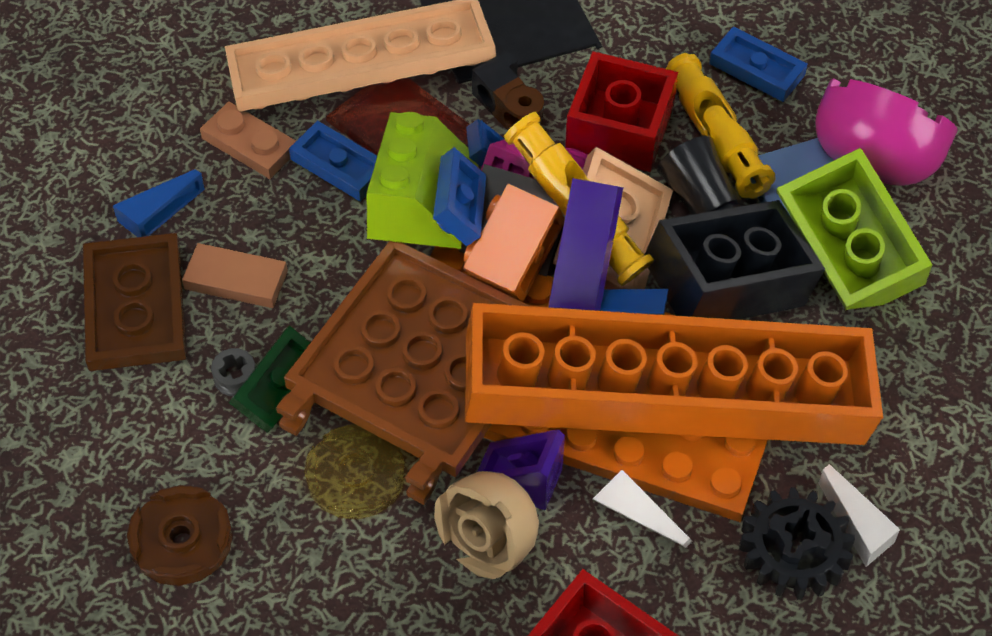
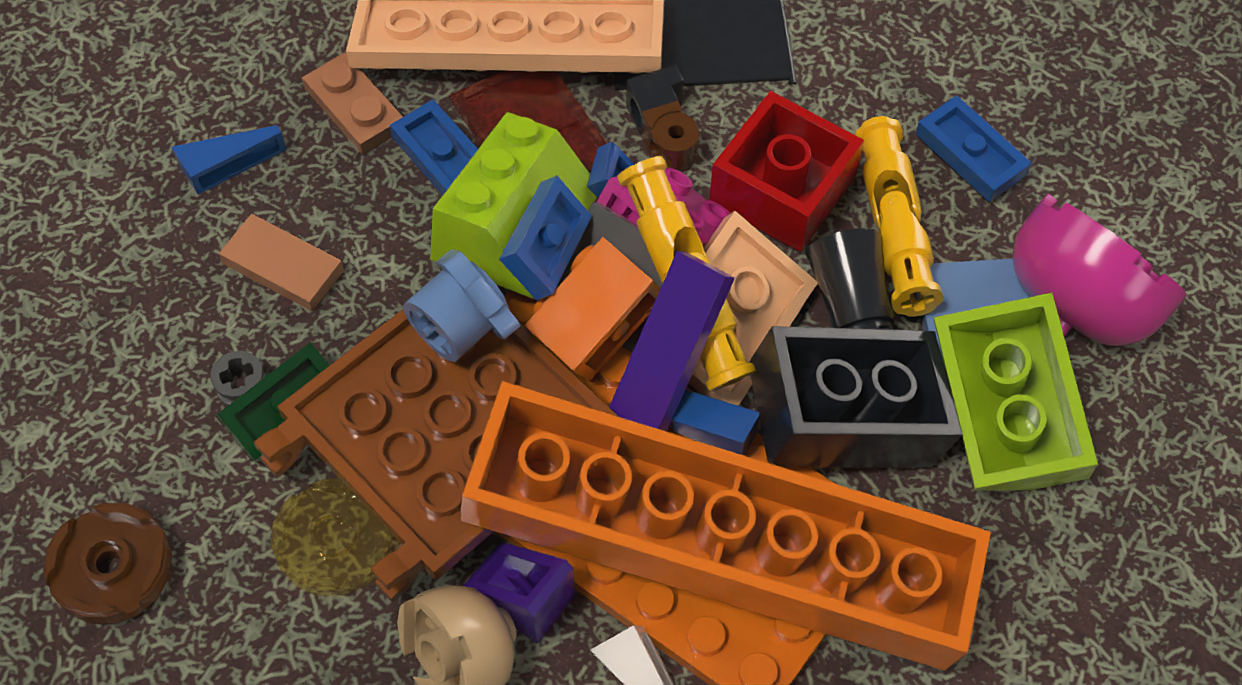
camera: 15 degrees right, 5 degrees up
(133, 302) = (156, 267): reddish brown plate -> none
(411, 264) = (459, 308): none -> medium blue piece

